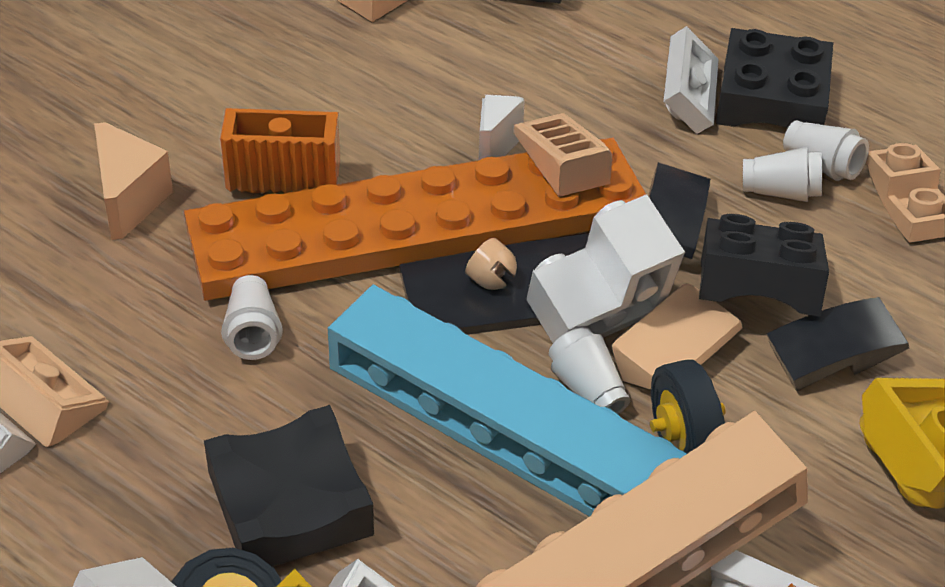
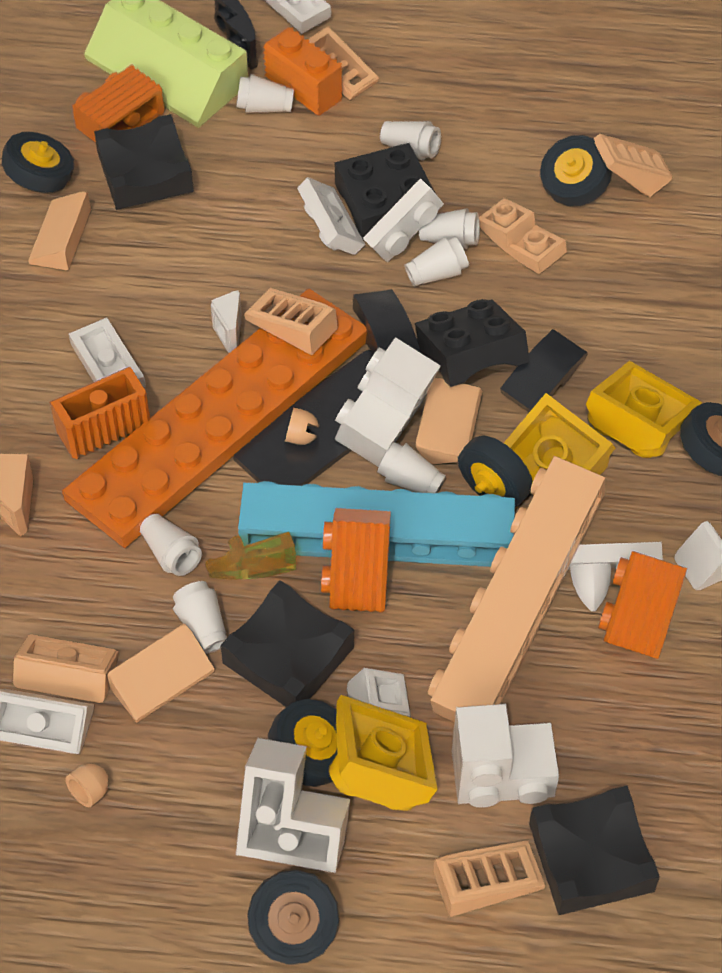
camera: 30 degrees left, 10 degrees up
(128, 443) = (160, 673): none -> light nougat slope
(222, 400) = (200, 611): none -> white cone
(334, 378) = (256, 560): none -> clear yellow slope
(343, 93) = (102, 351): none -> white plate
(439, 428) = (358, 559): none -> orange brick
(768, 110) = (404, 220): none -> white plate
(806, 418) = (557, 432): none -> yellow slope
(854, 48) = (420, 134): none -> white cone

